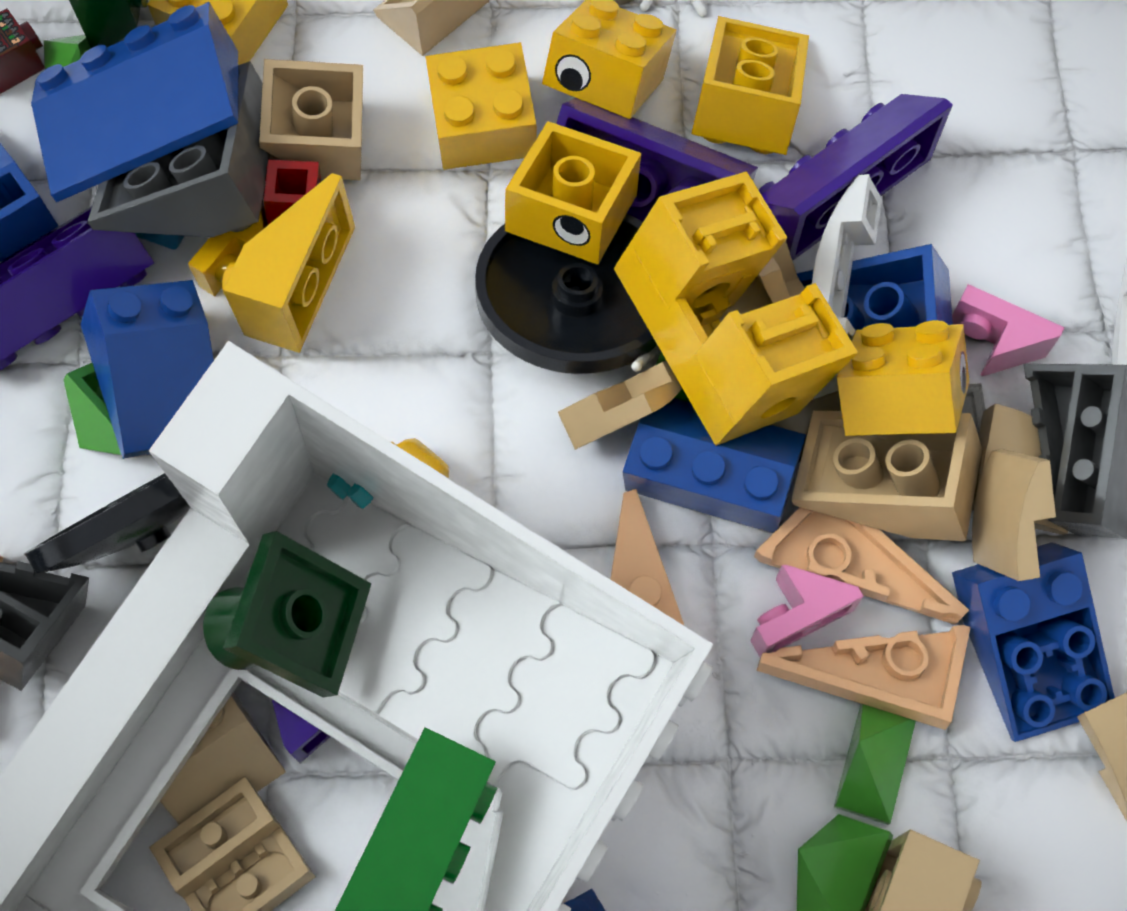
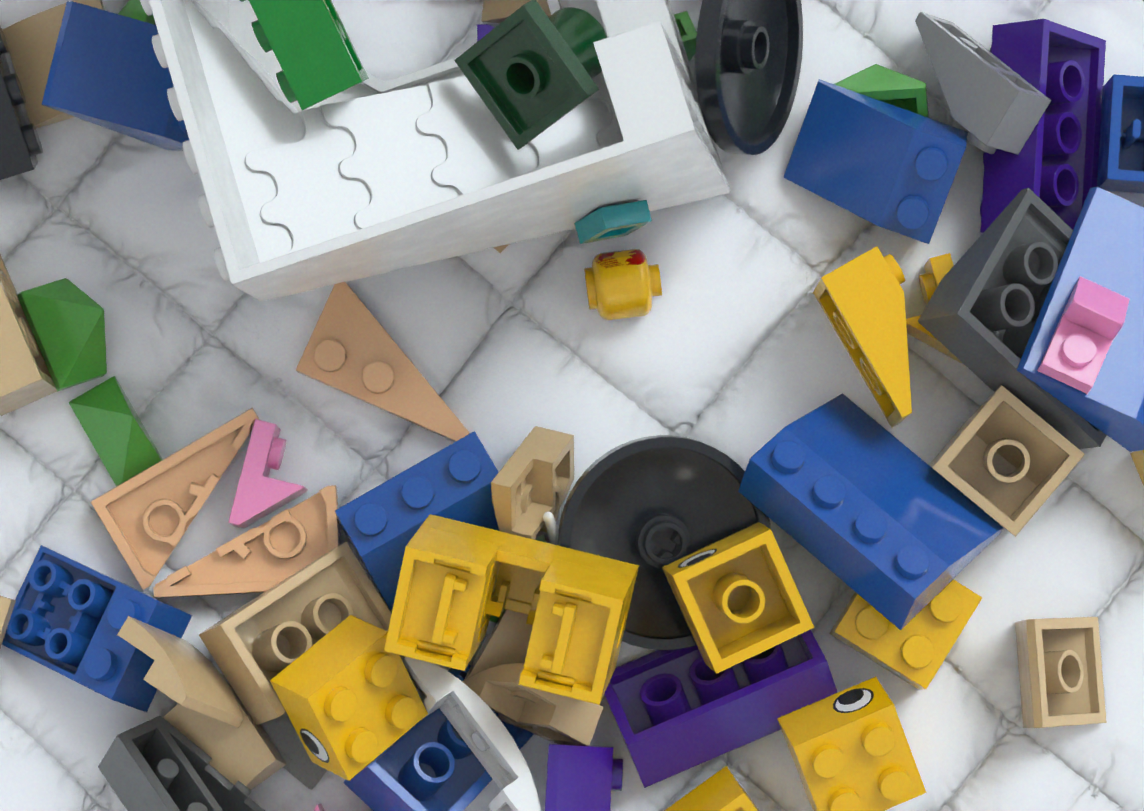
camera: 130 degrees right, 15 degrees up
(37, 326) = (981, 89): none -> light grey slope
(169, 98) = (1084, 335): none -> bright pink slope
(288, 183) = (943, 385): red brick -> none
(429, 161) = (867, 508): none -> blue slope

